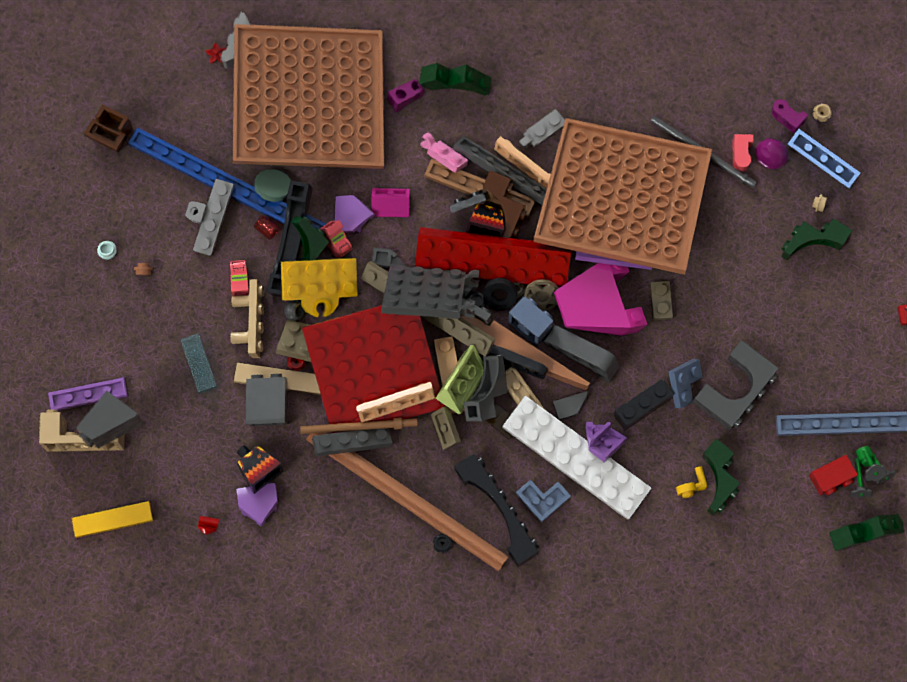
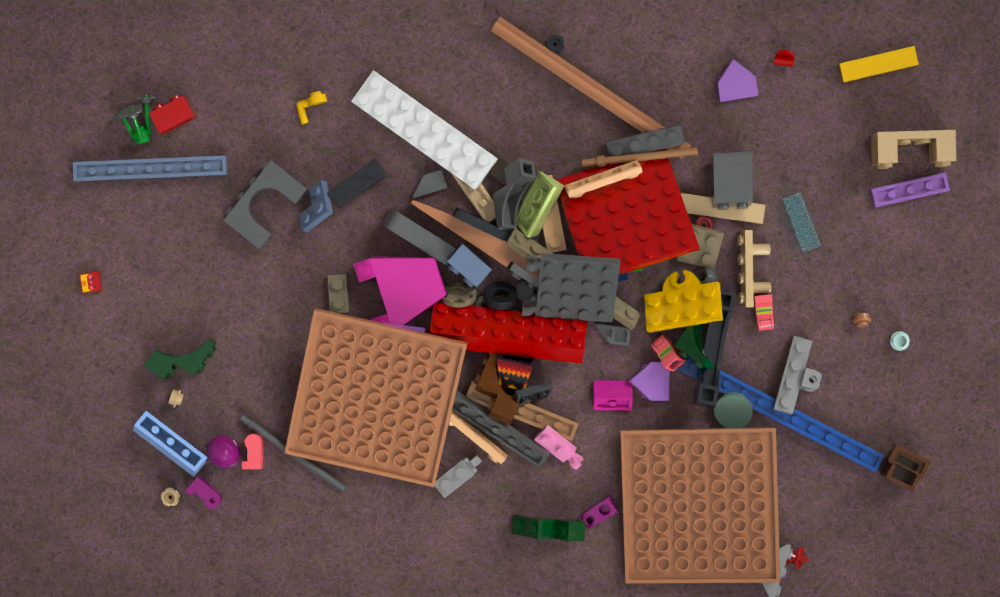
camera: 175 degrees left, 15 degrees up
(108, 421) = (889, 147): dark grey slope -> none
(258, 467) = (738, 115): torso -> none
(266, 227) = (738, 366): clear red piece -> none
(445, 428) = (553, 158): dark tan plate -> none
(472, 472) = (478, 40): black arch -> none
(543, 504) = (457, 83): sand blue plate -> none
(603, 440) = (397, 146): medium lavender slope -> none
(717, 457) = (278, 102): dark green arch -> none
(866, 531) = (141, 58): dark green arch -> none

